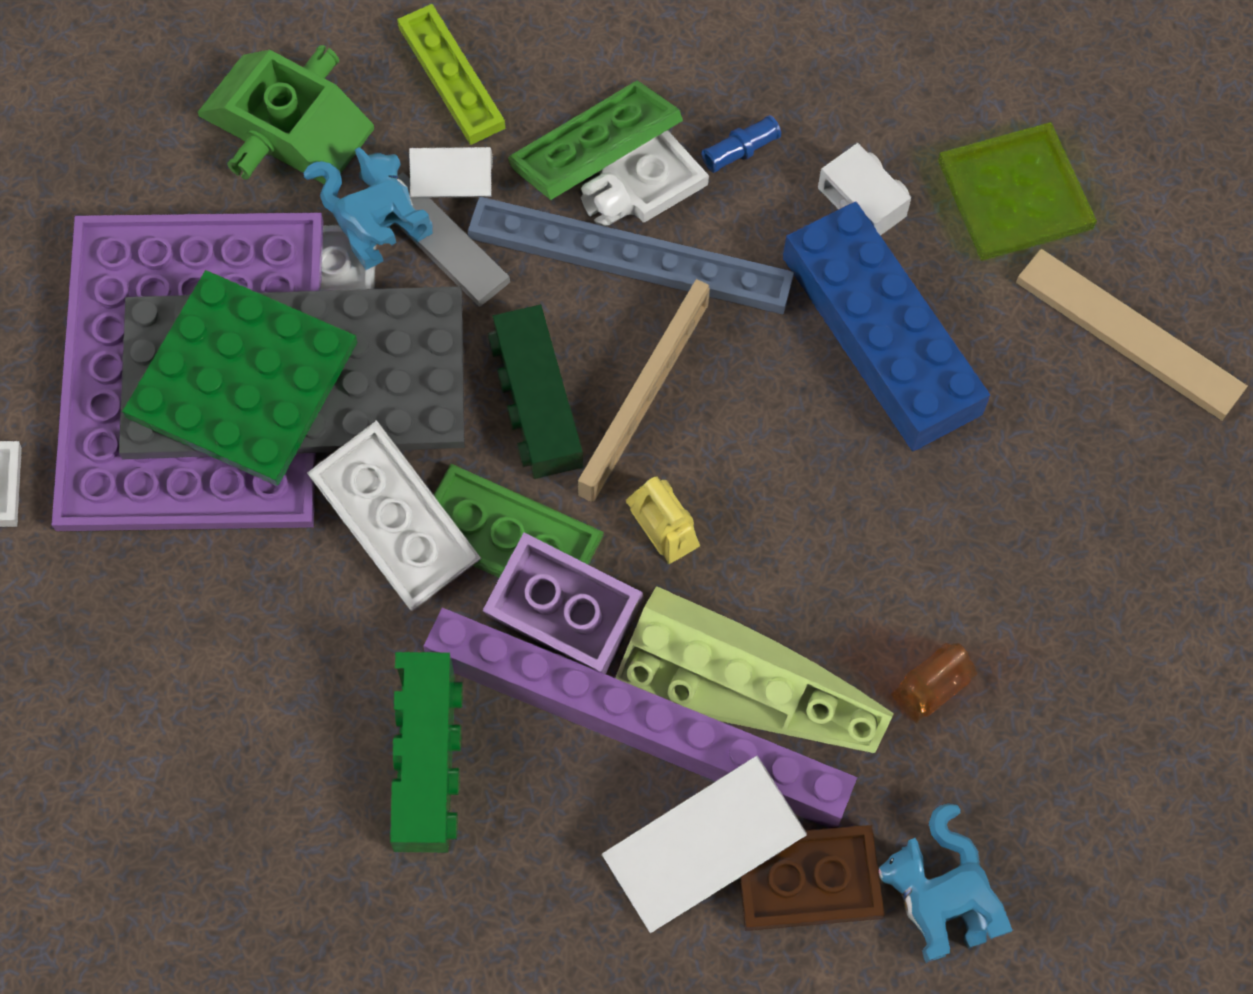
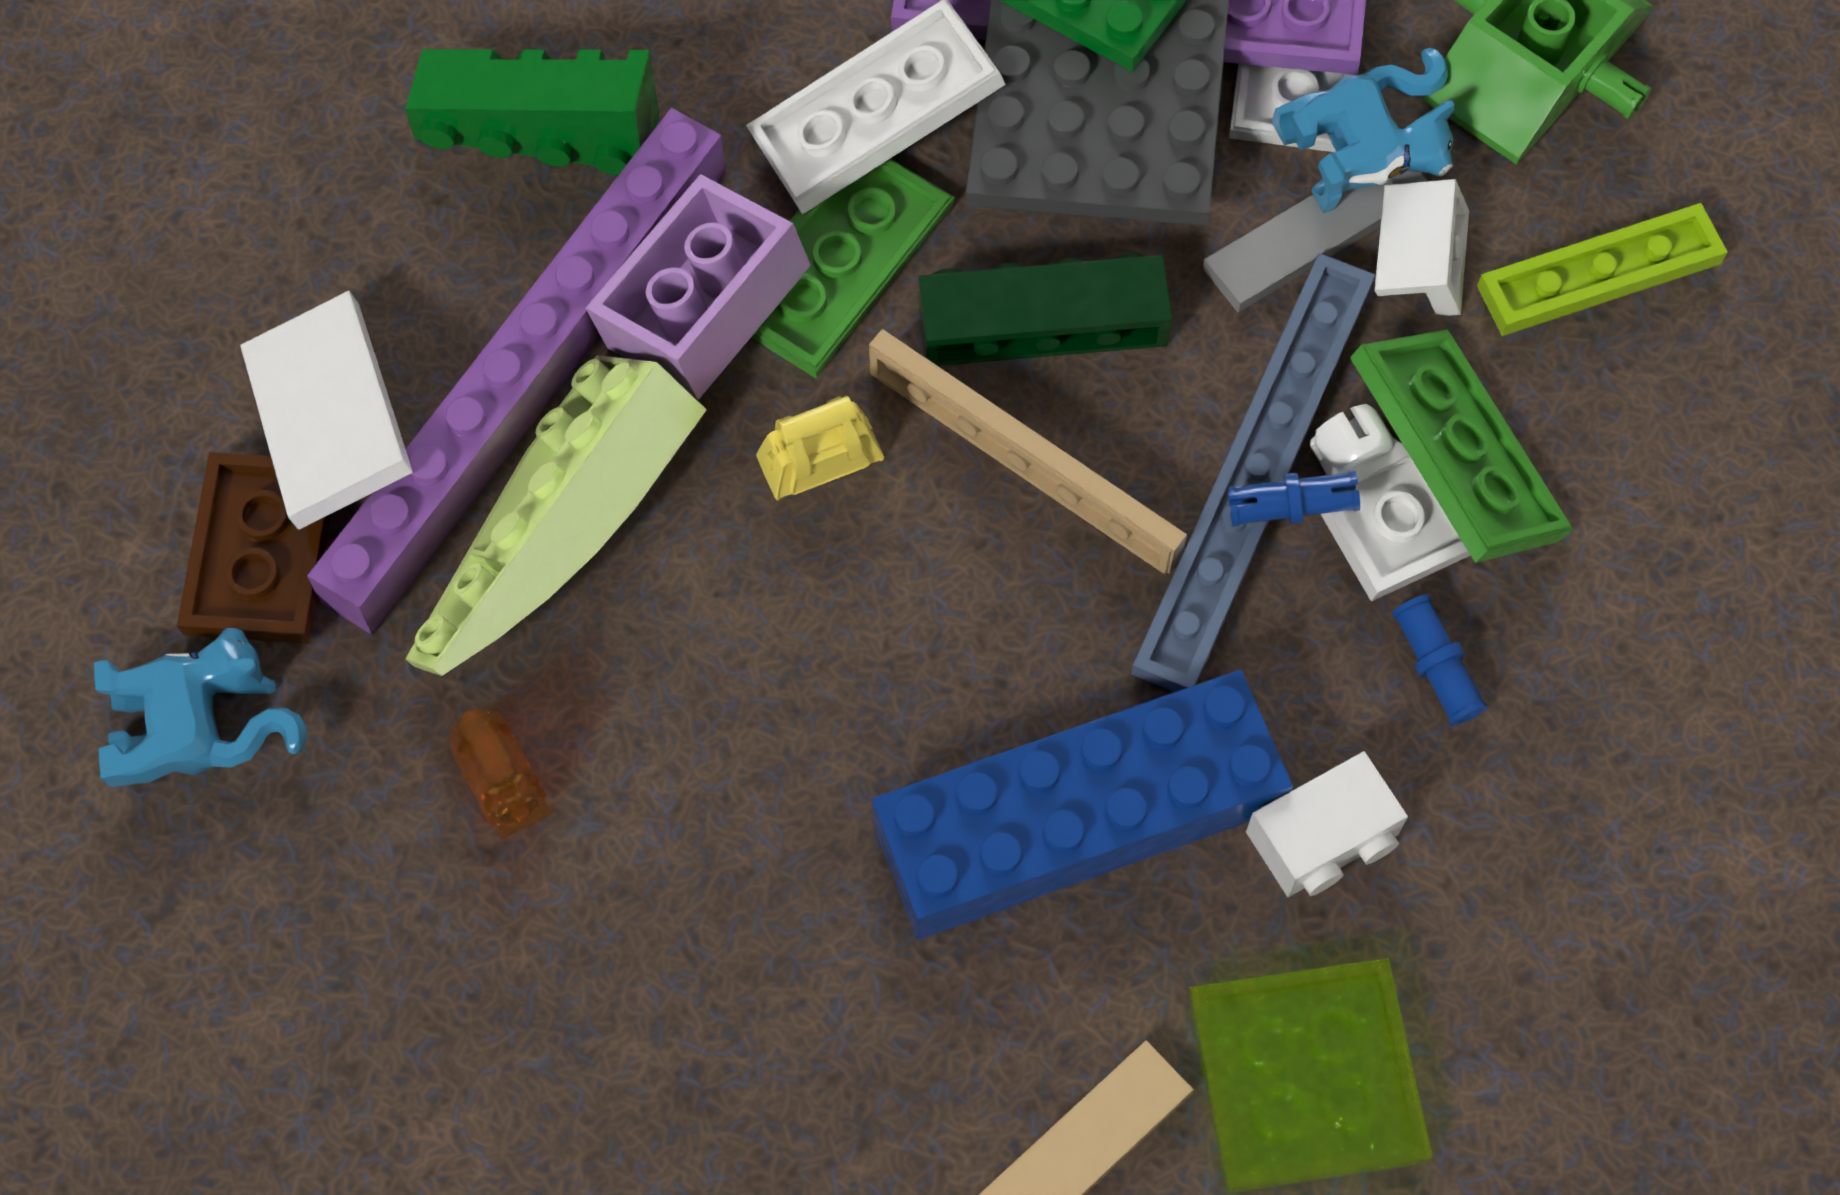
camera: 100 degrees right, 0 degrees up
(660, 220) = (1293, 498): none -> blue pin

